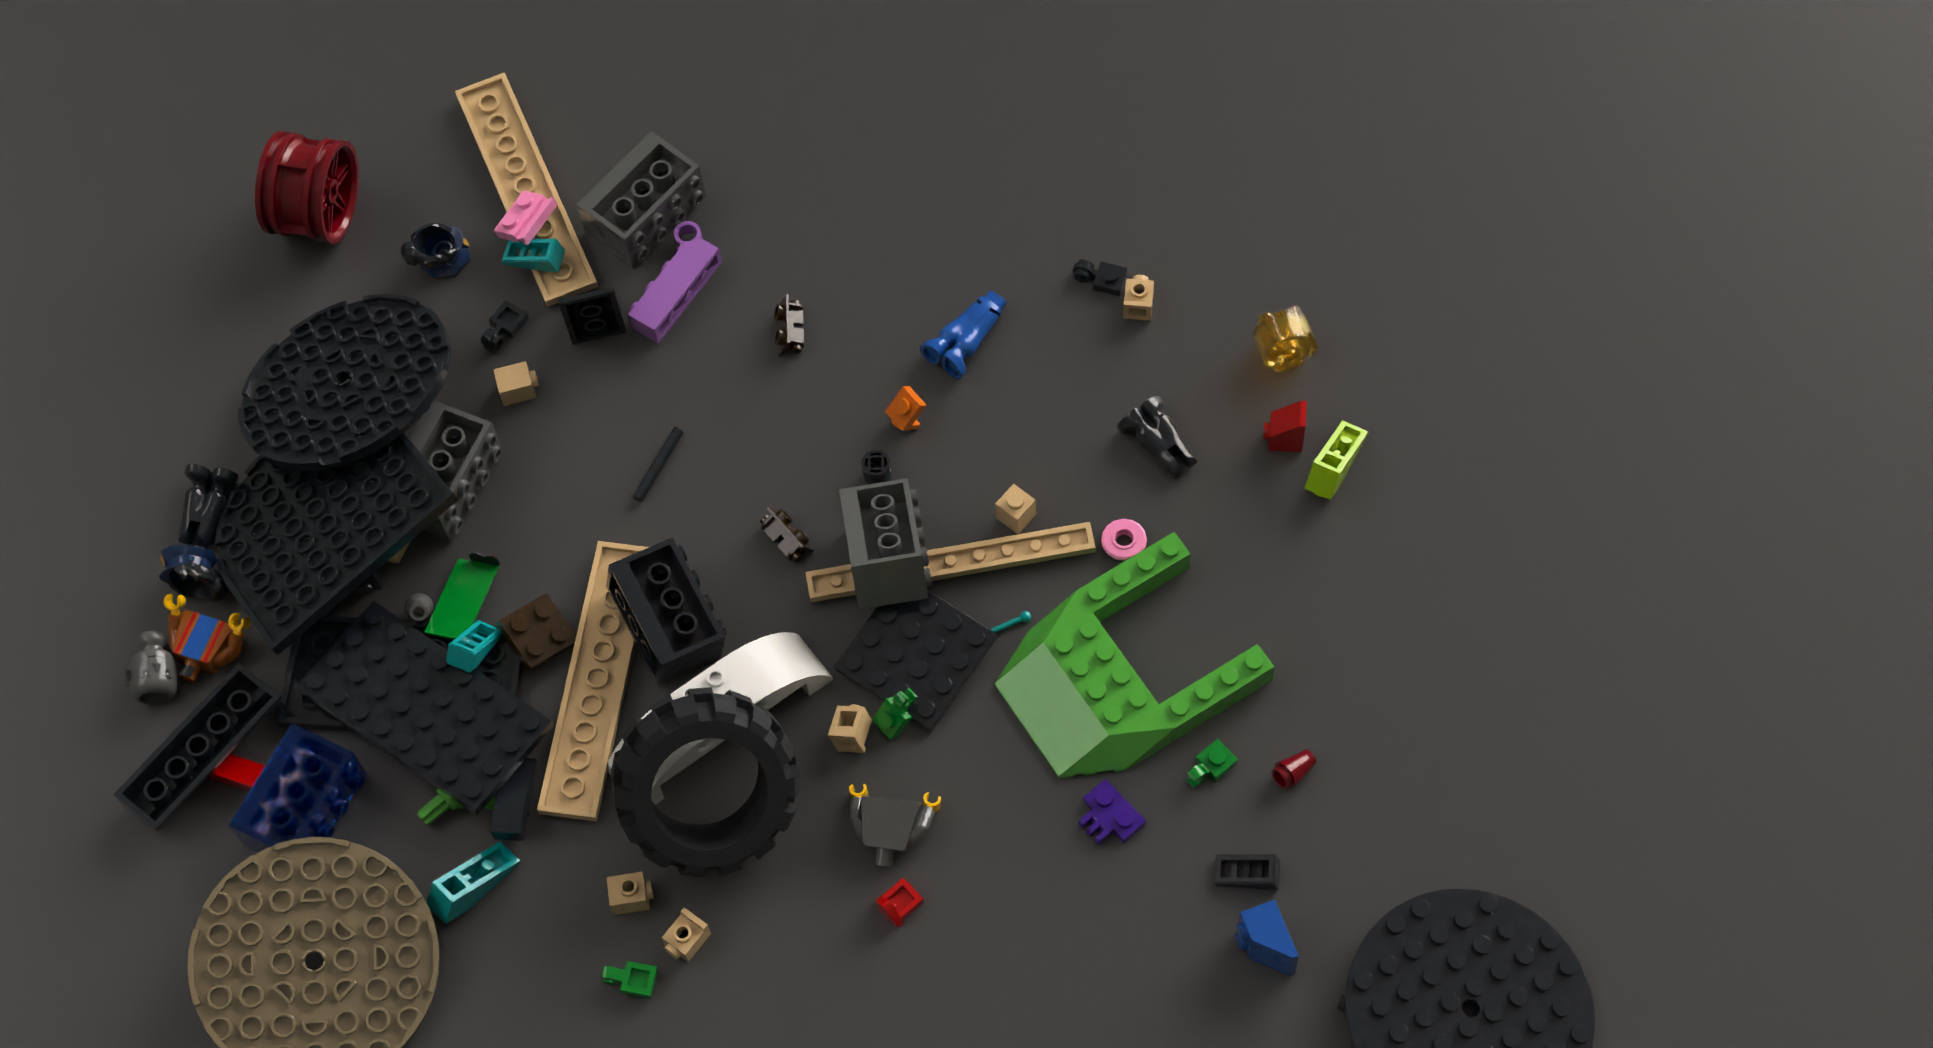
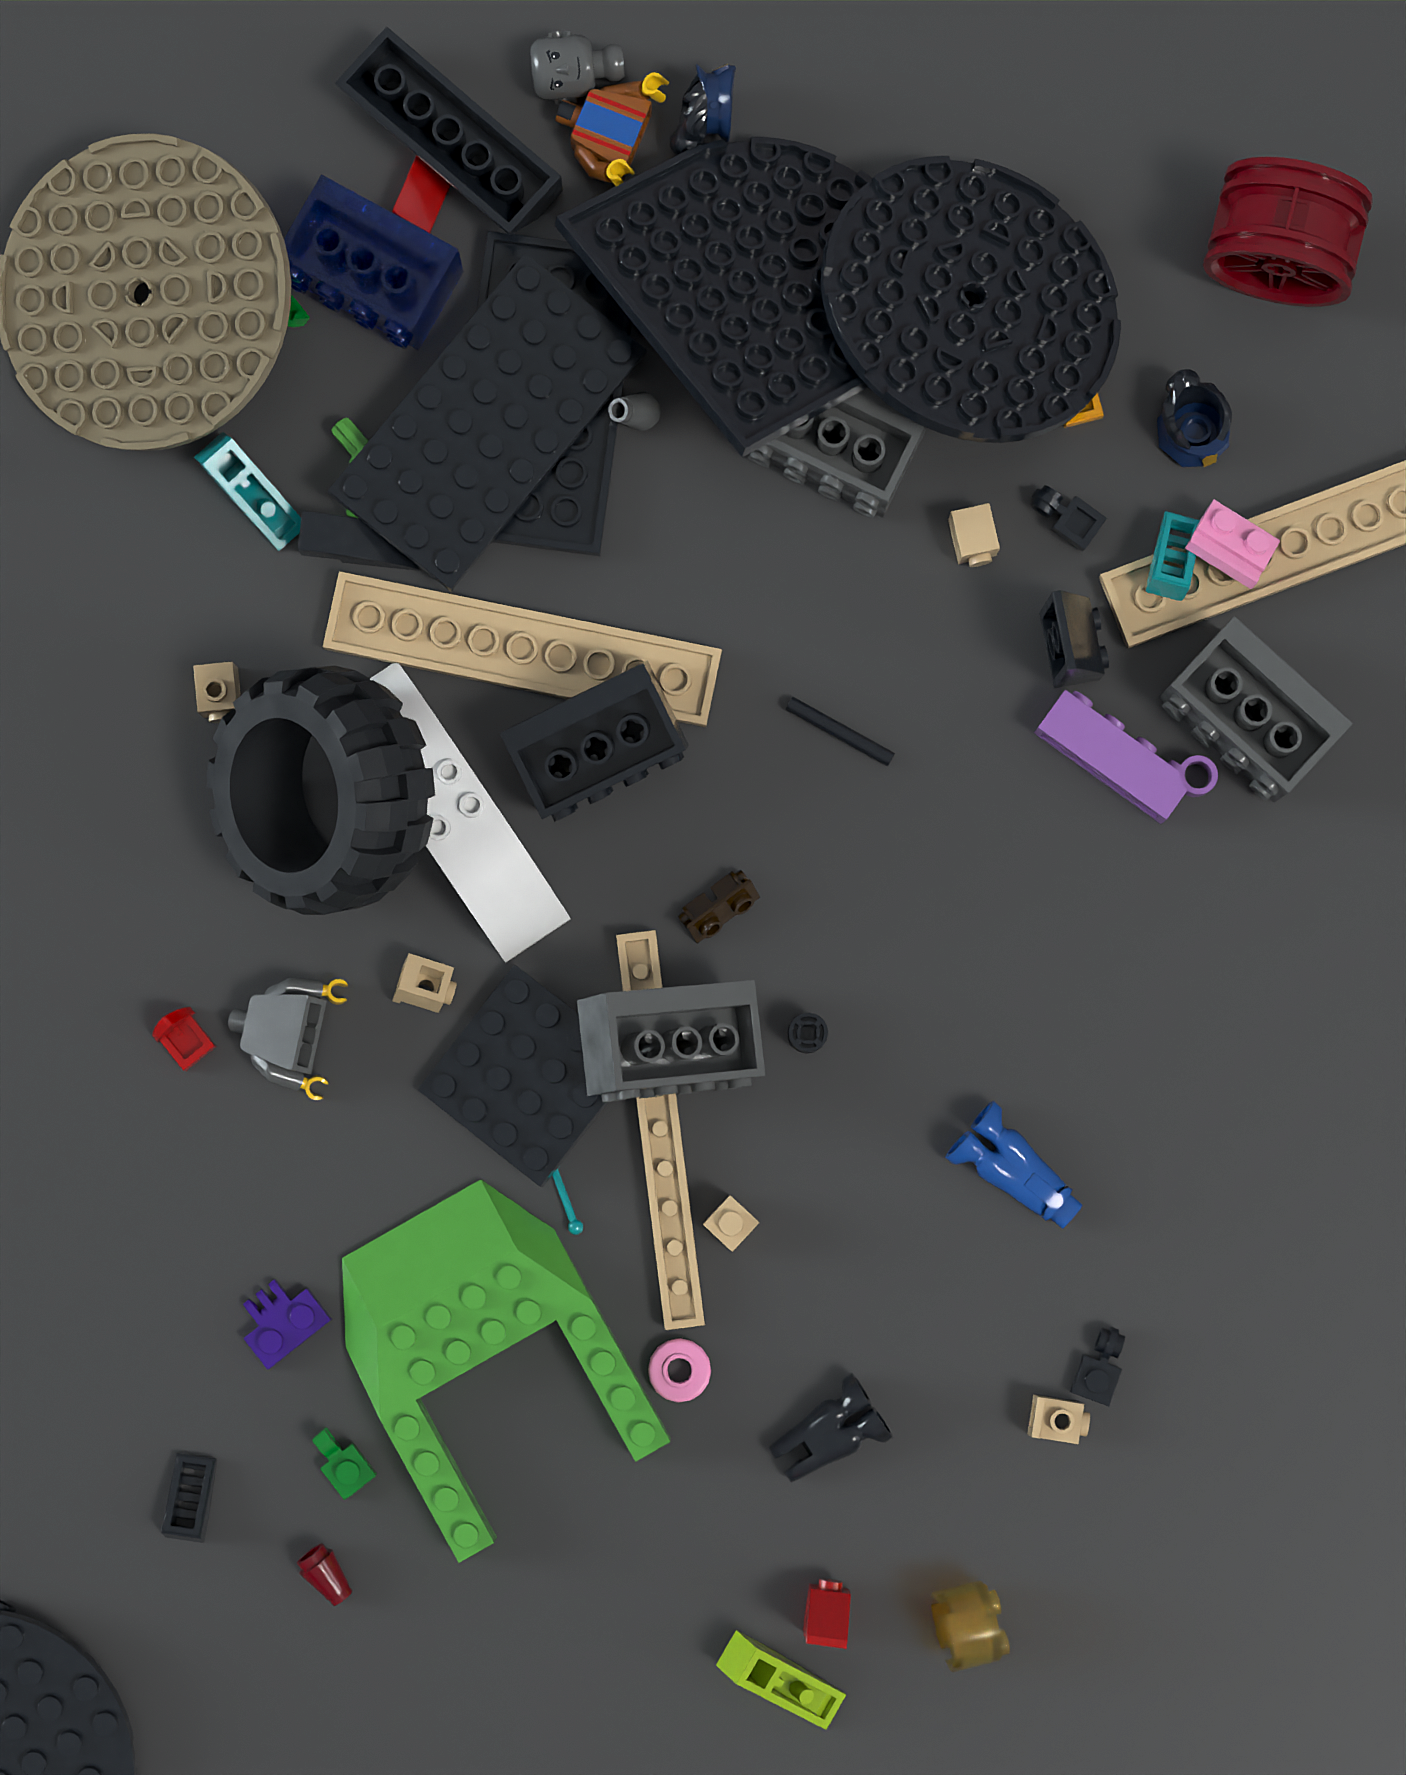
camera: 85 degrees right, 20 degrees up
(203, 506) = (809, 118): black piece -> none
(463, 596) = (651, 468): green piece -> none
(470, 648) = (546, 474): teal slope -> none
(537, 632) = (590, 569): dark brown plate -> none
(635, 979) = (104, 700): green plate -> none
(685, 947) = (164, 772): tan brick -> none
(789, 315) = (1062, 916): dark brown hinge -> none
(893, 713) = (437, 1042): green plate -> none
(905, 409) = (890, 1077): orange bracket -> none
(1266, 938) = (83, 1515): blue slope -> none

